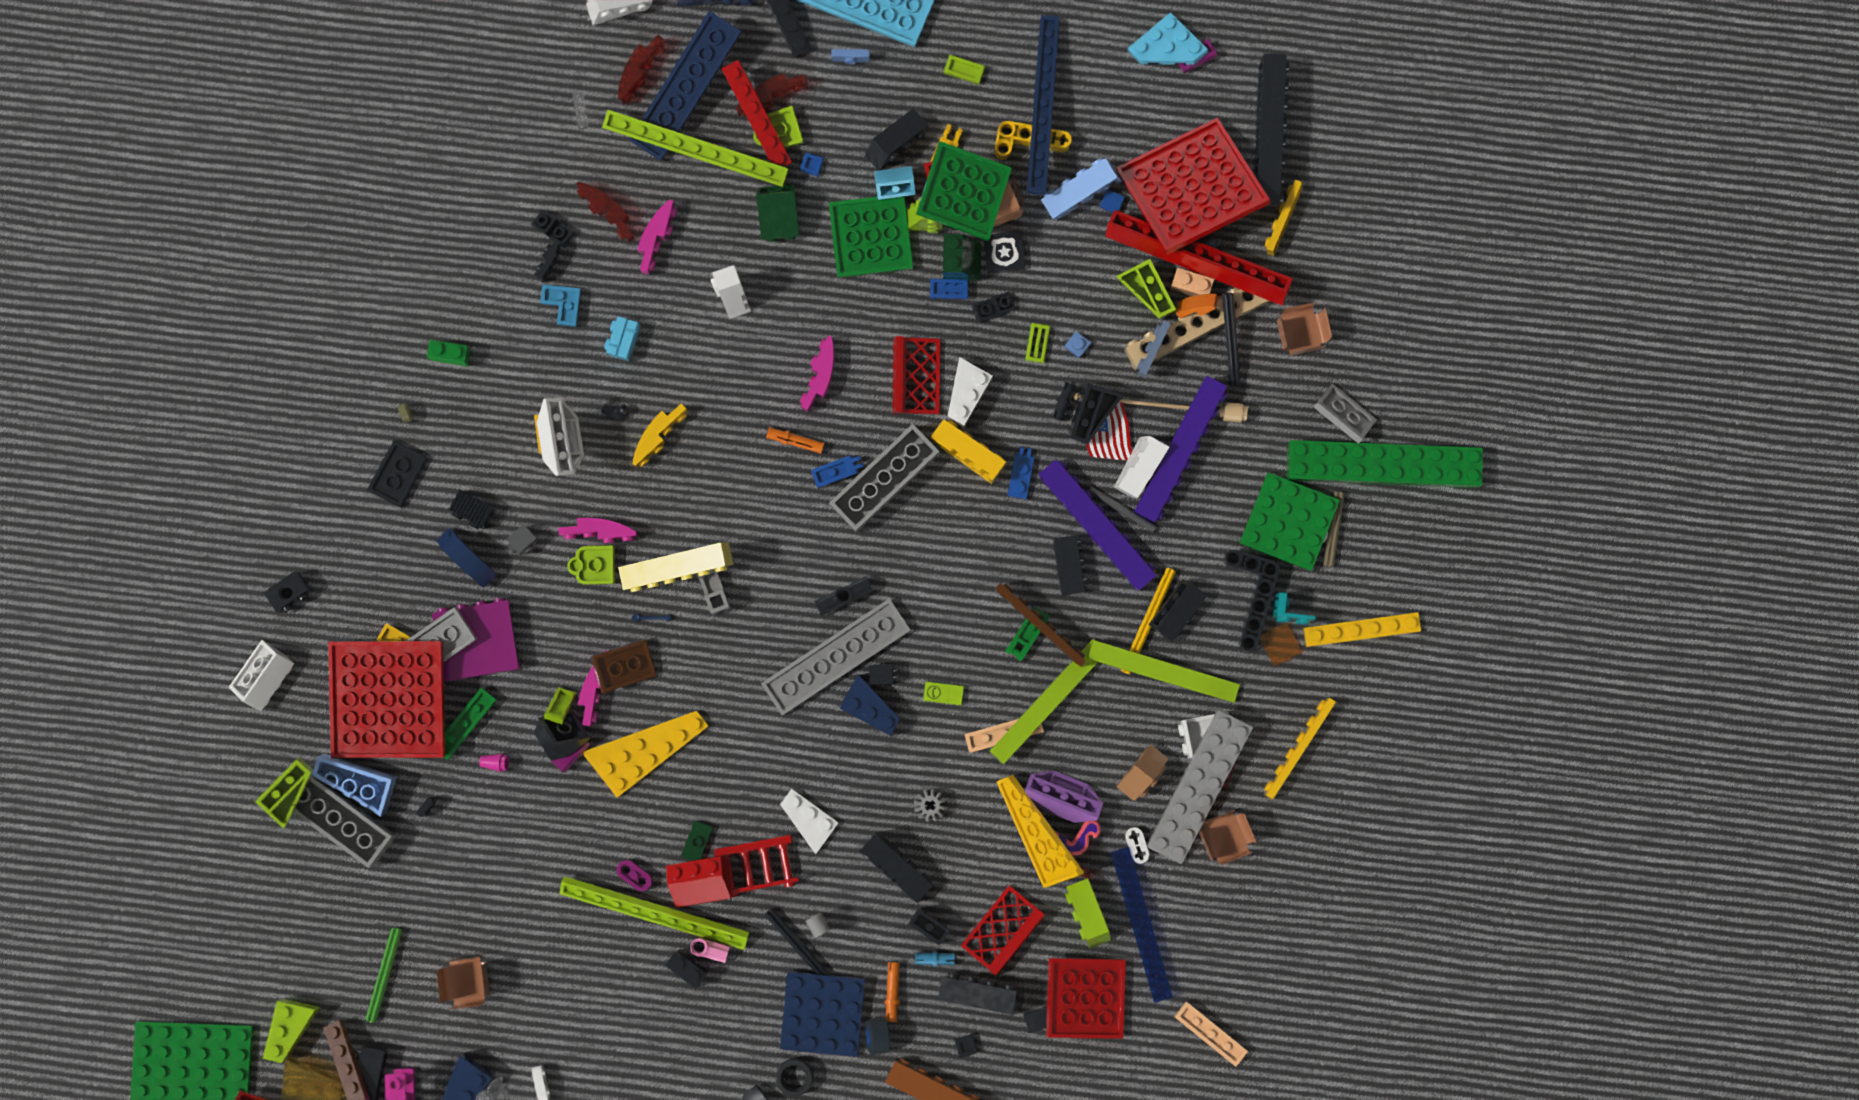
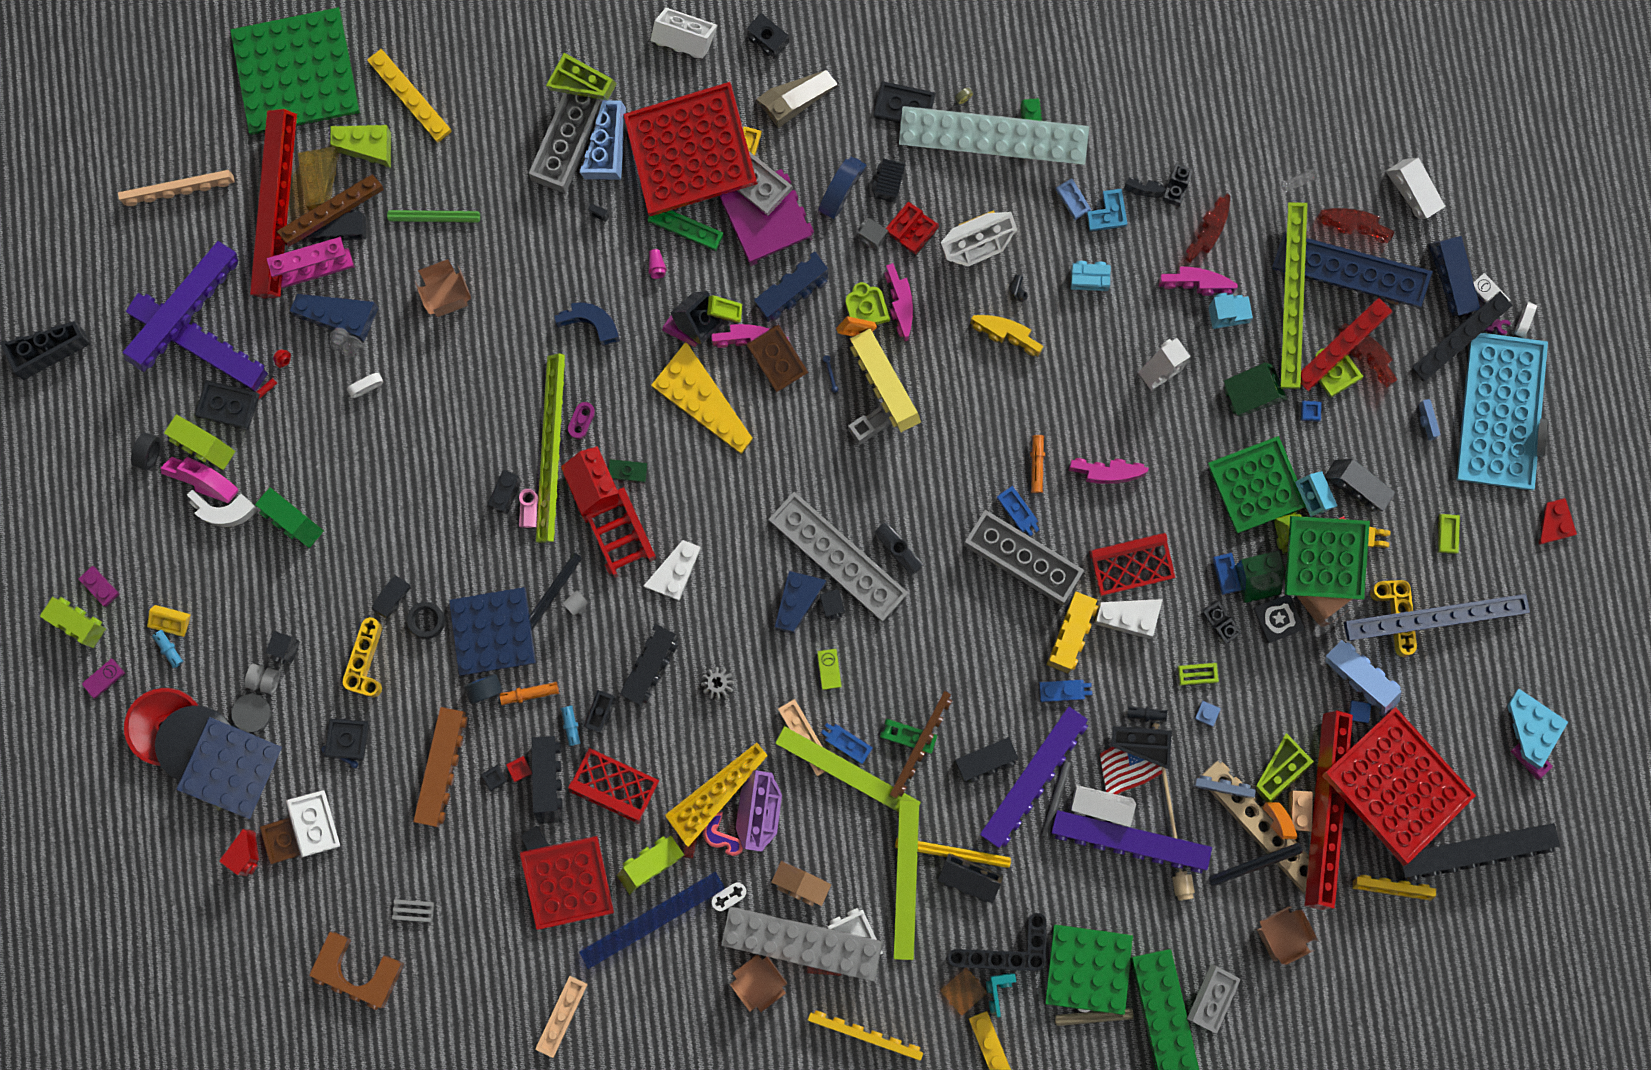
camera: 75 degrees right, 5 degrees down
(249, 970) = (409, 95): none -> yellow plate
(359, 583) = (791, 98): none -> dark tan wedge
(455, 394) = (994, 135): none -> light aqua plate
(526, 499) = (912, 228): none -> red slope
(531, 837) = (592, 315): none -> dark blue arch
(540, 334) = (1073, 199): none -> medium blue plate
(556, 633) = (792, 288): none -> dark blue wedge
(612, 583) = (854, 326): none -> orange plate
(693, 214) = (1229, 310): none -> medium azure brick
(964, 1019) = (519, 769): none -> red plate
(1019, 694) = (847, 743): none -> blue hinge

